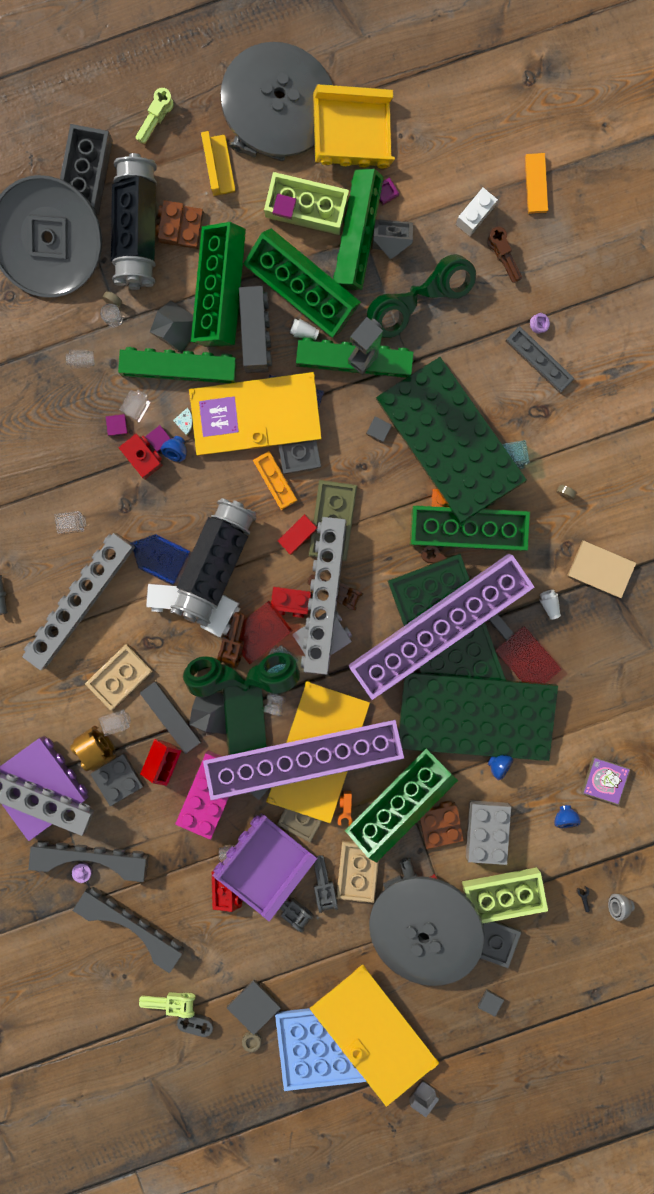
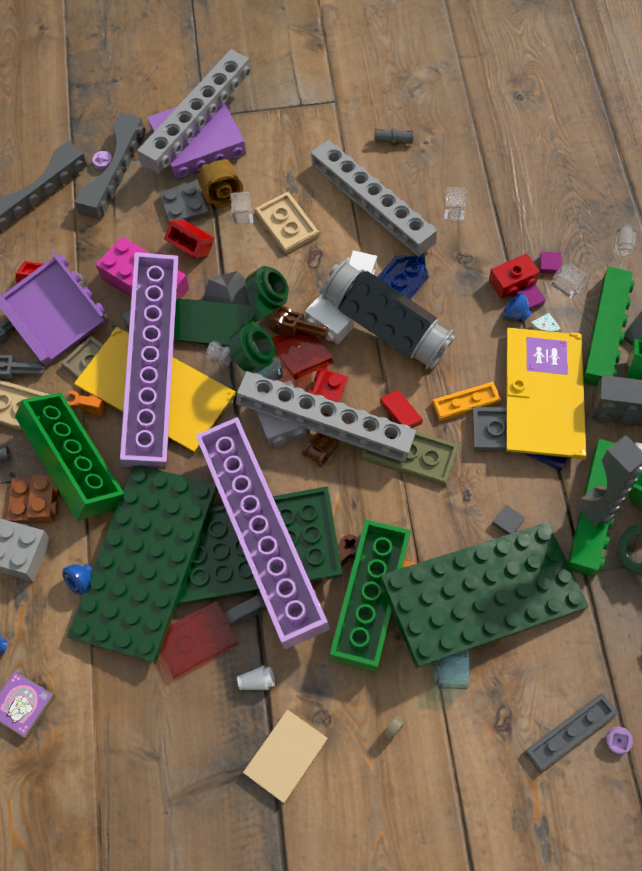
camera: 100 degrees right, 25 degrees down
(170, 717) = (233, 259): dark grey tile -> none

